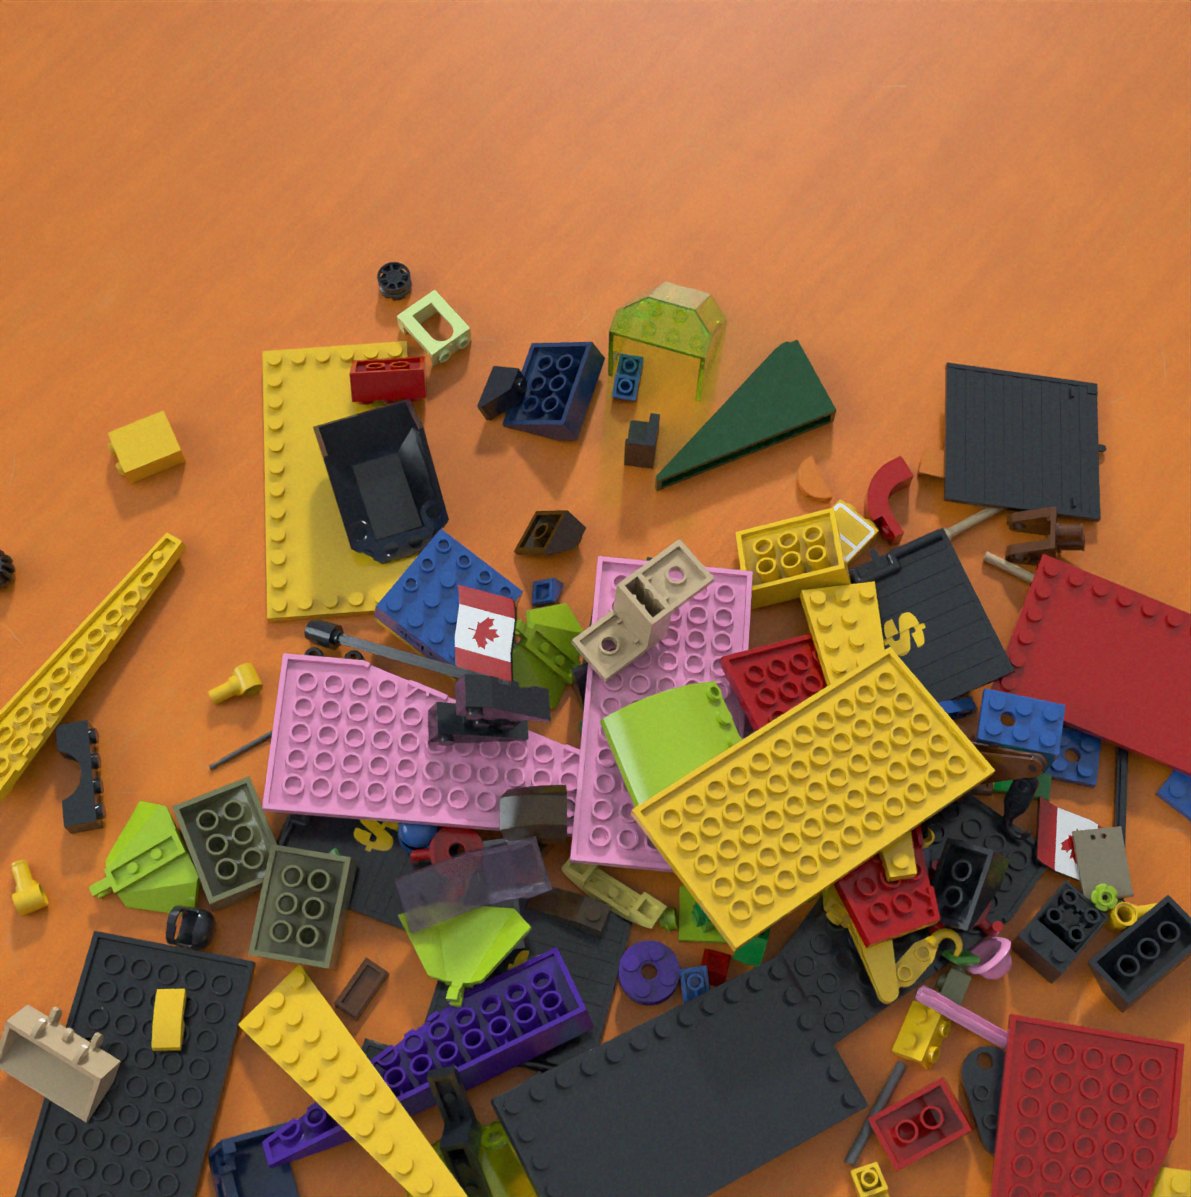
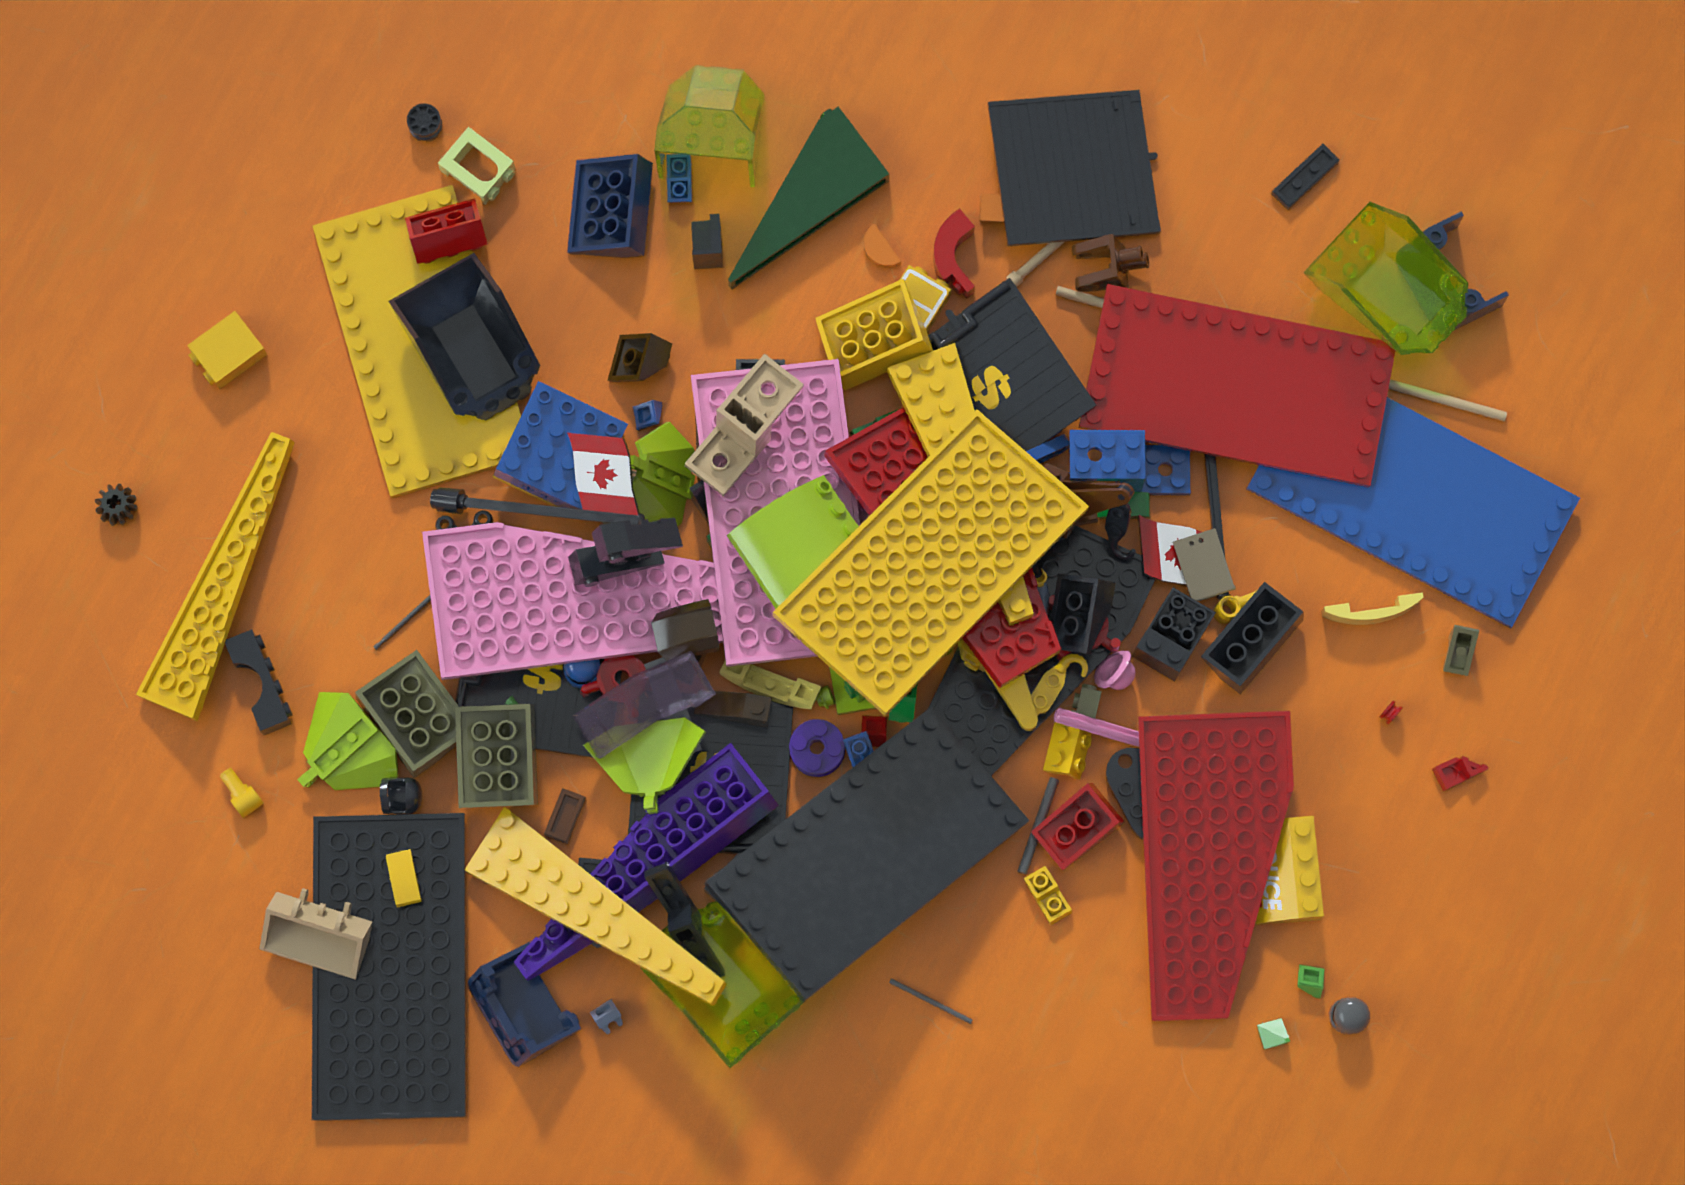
camera: 10 degrees left, 10 degrees up
(242, 682) = (384, 561): yellow pin -> none
(501, 391) = (559, 220): black slope -> none
(964, 960) = (1092, 678): bright green slope -> none
(1097, 894) = (1202, 595): lime plate -> none

